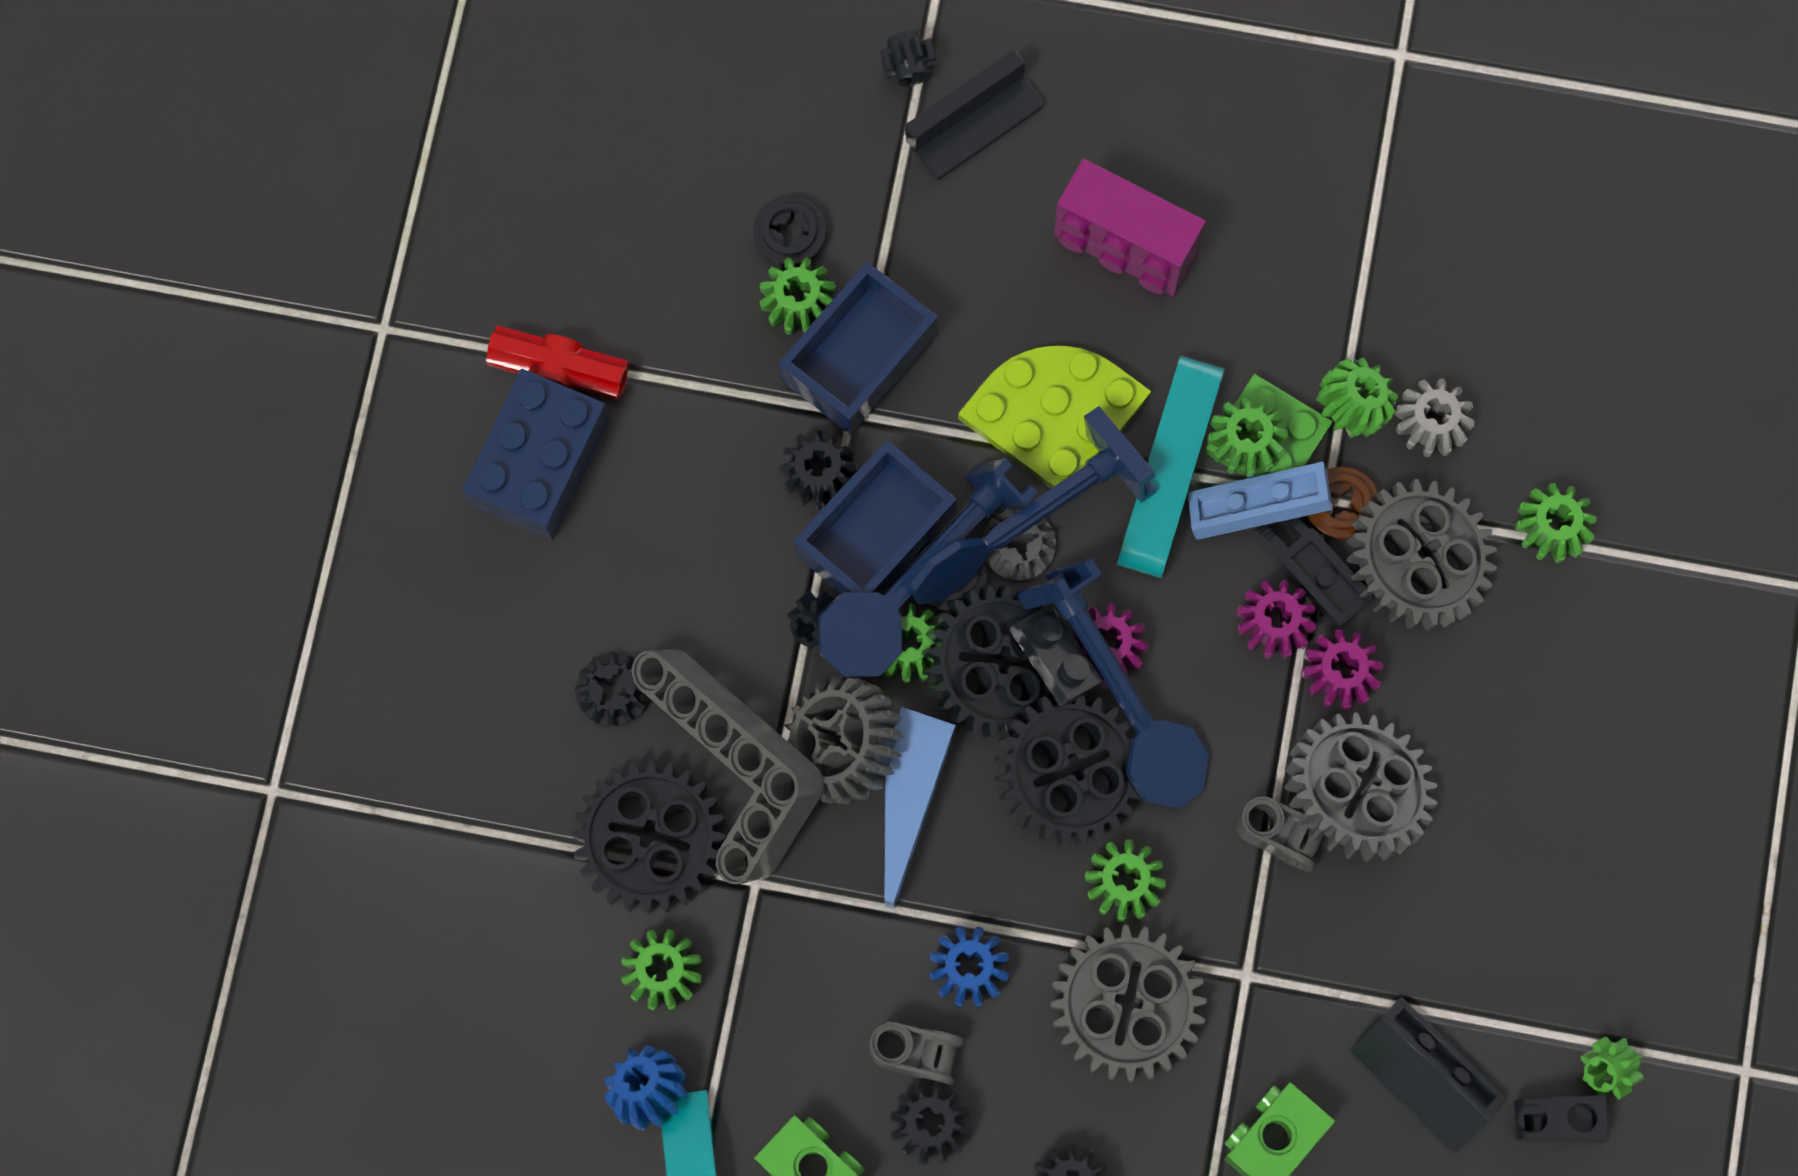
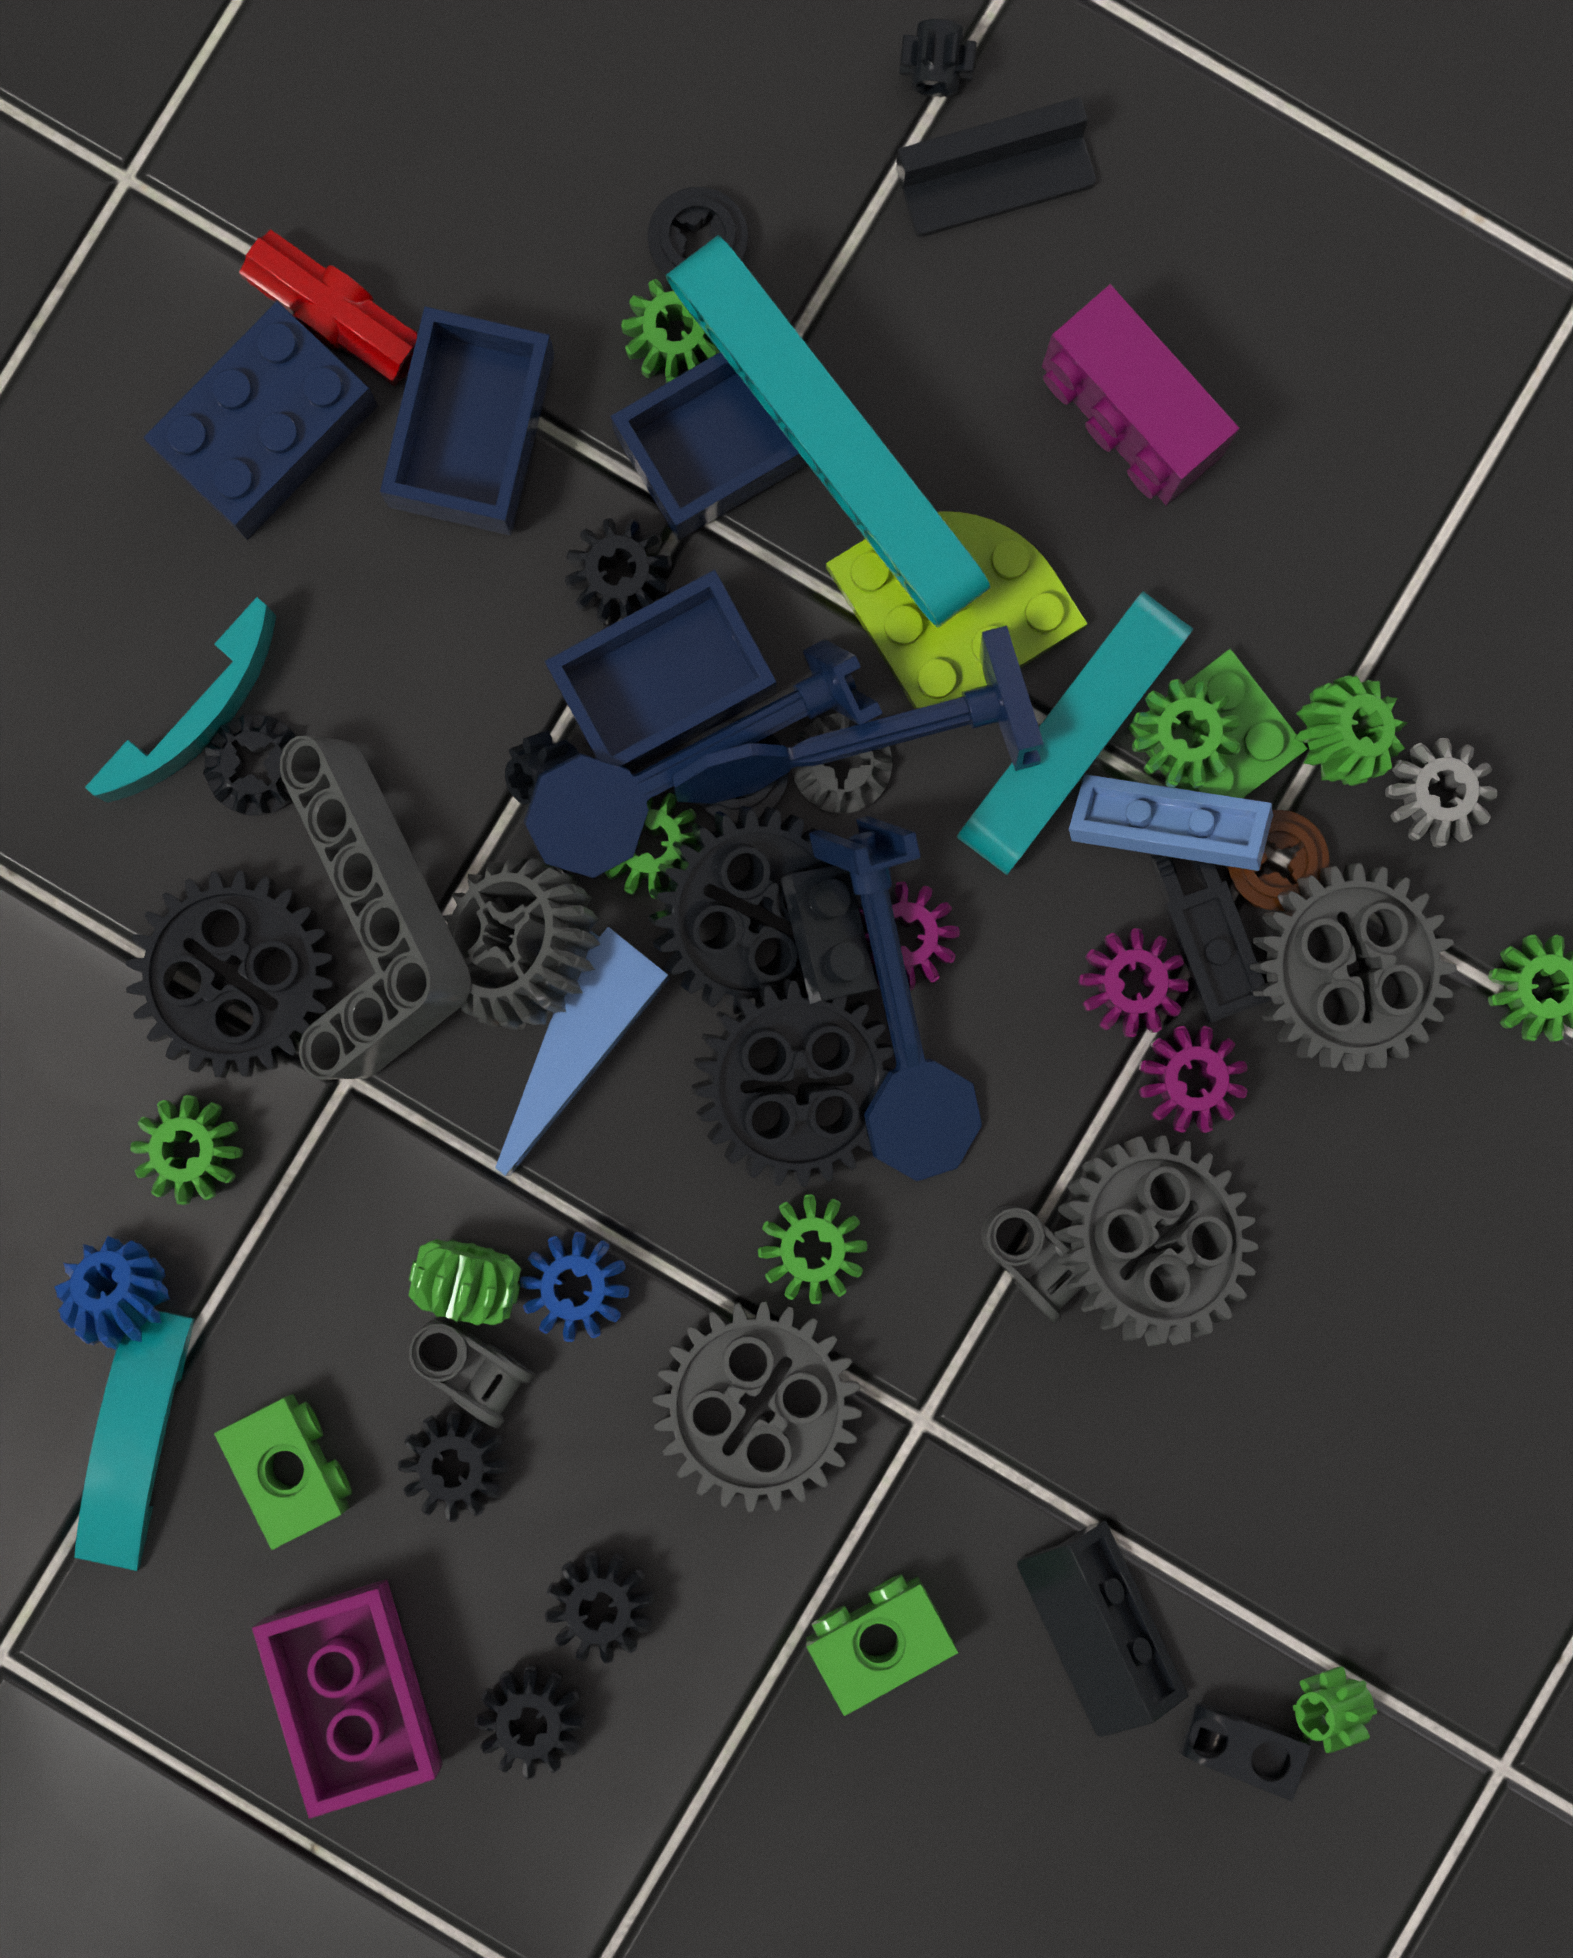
camera: 15 degrees right, 10 degrees up
(534, 719) = (134, 770): none -> teal slope
(679, 403) = (467, 420): none -> dark blue piece
(891, 988) = (464, 1282): none -> bright green gear
(931, 320) = (828, 431): none -> teal beam

